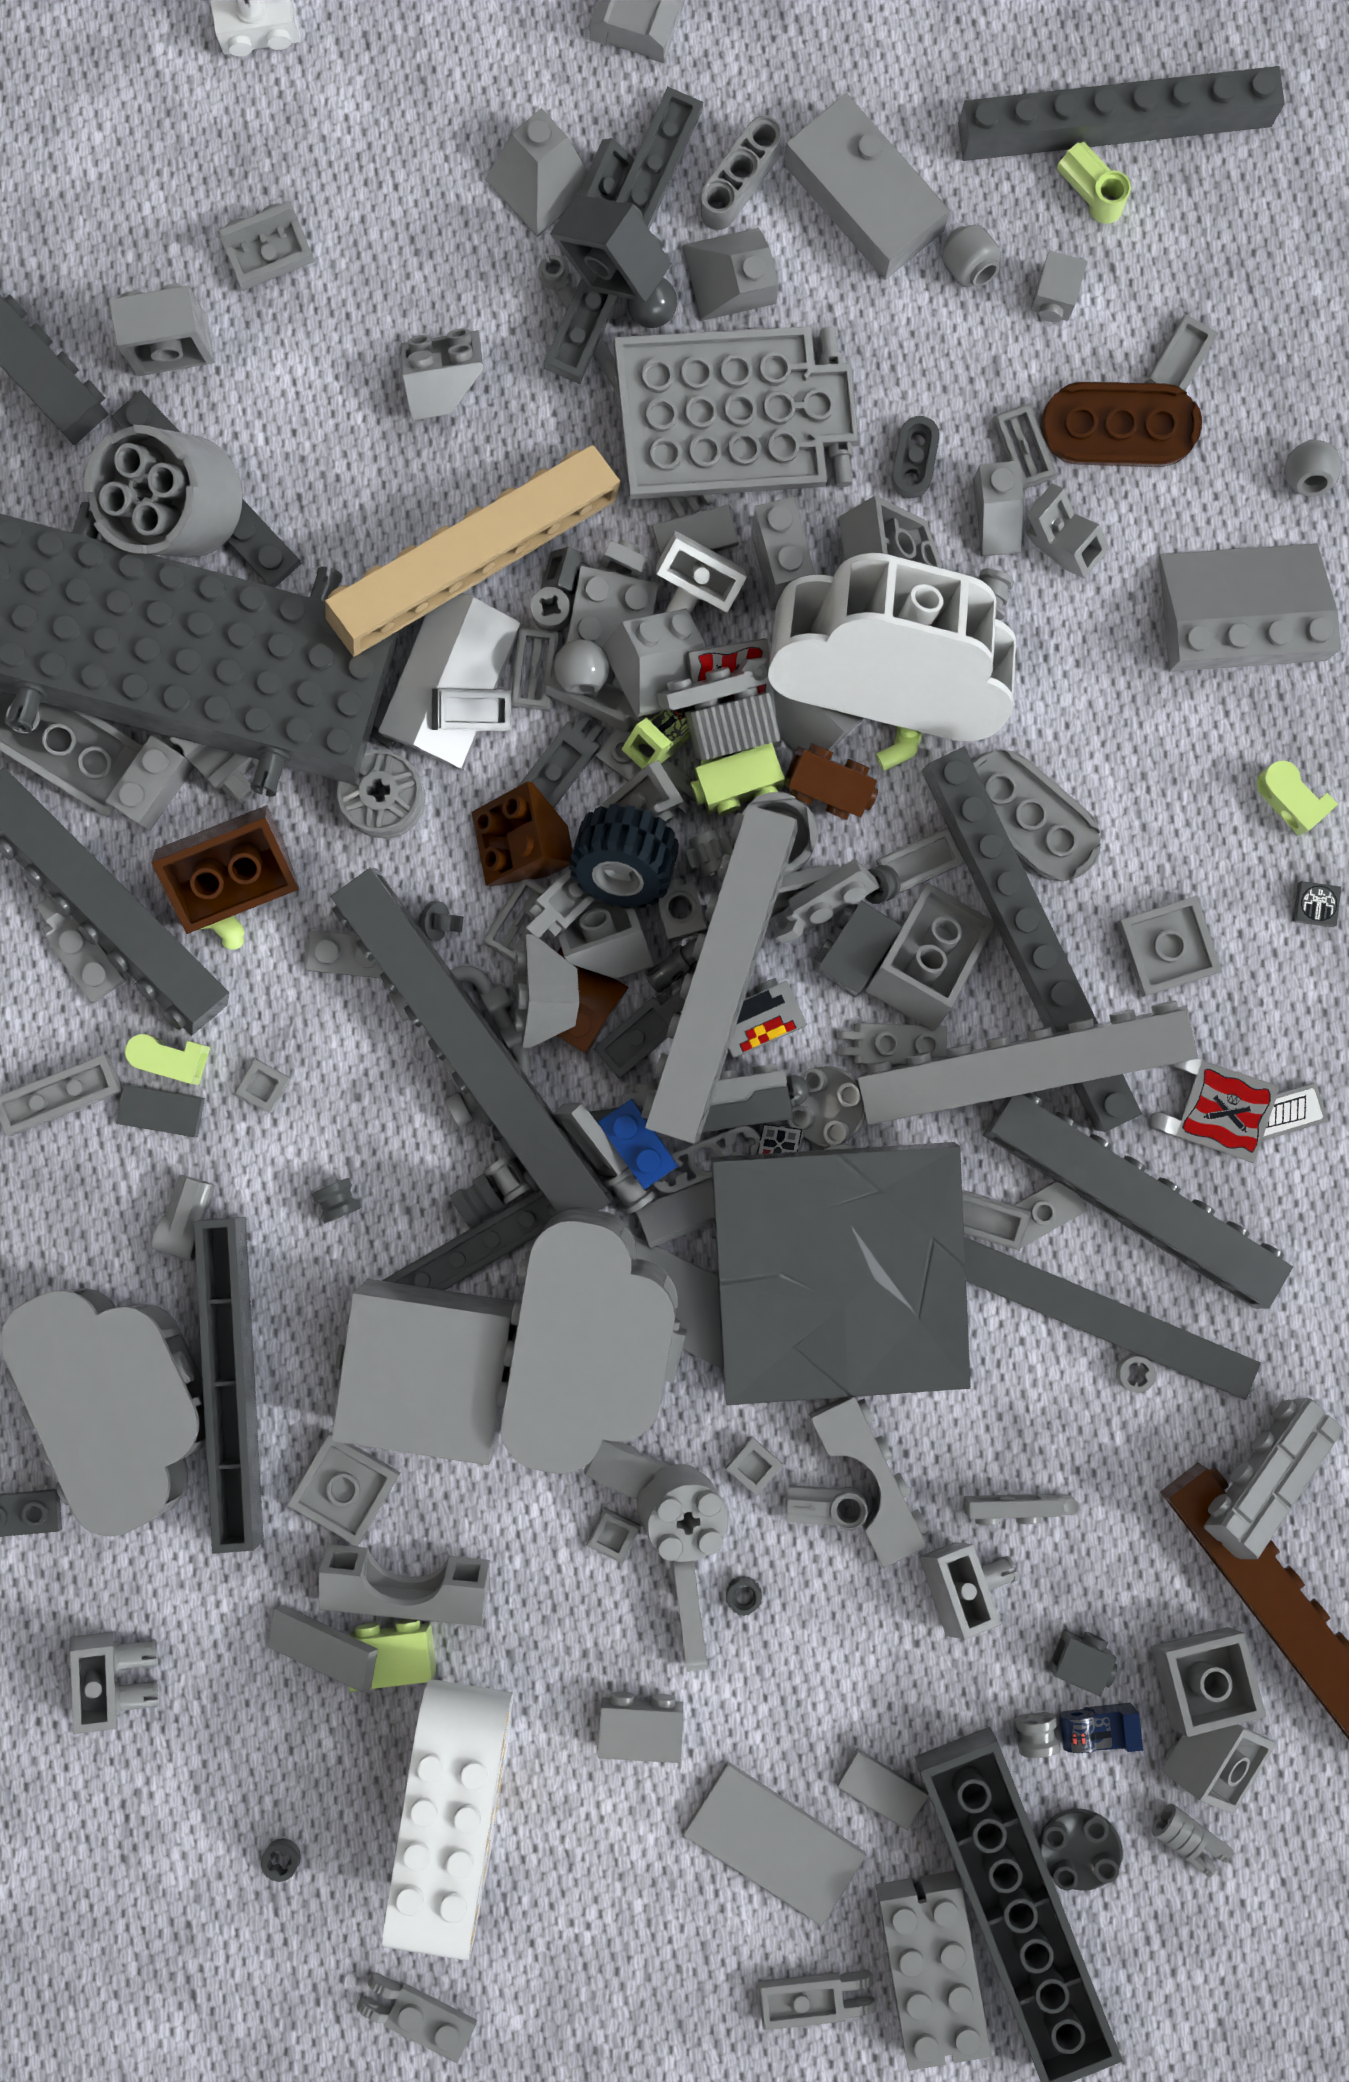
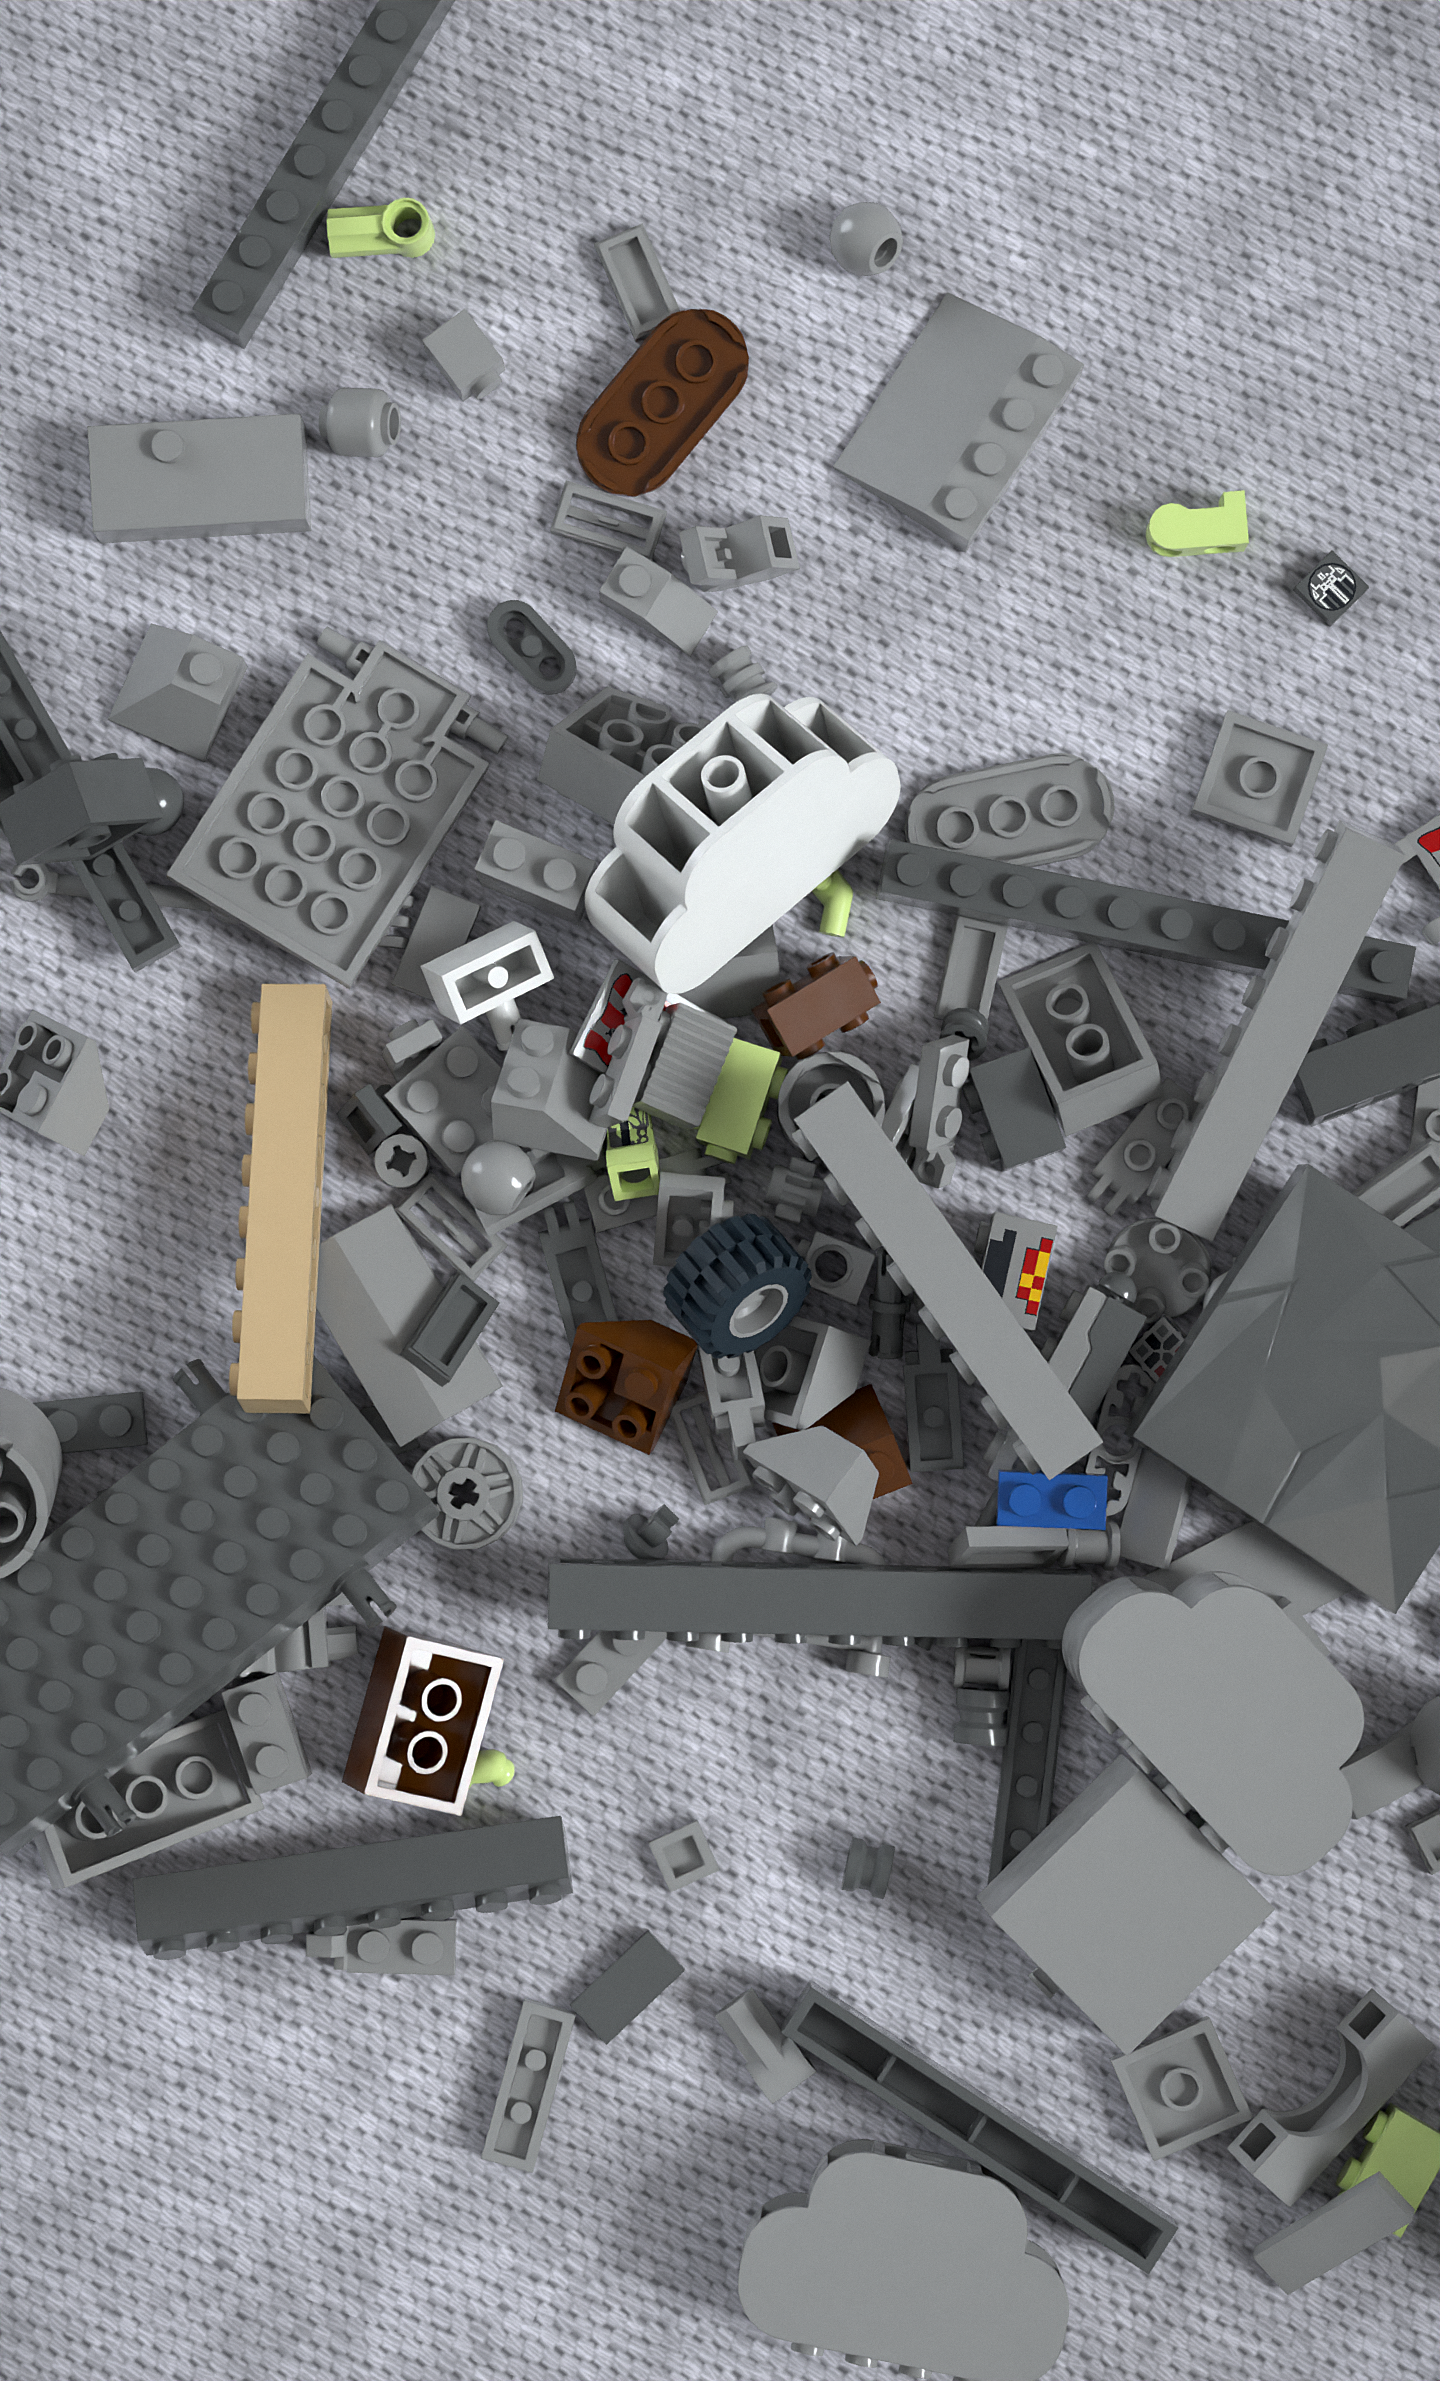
camera: 55 degrees left, 0 degrees up
(153, 1056) = (564, 1950): yellowish green leg -> none
(743, 156) = (64, 580): light grey beam -> none

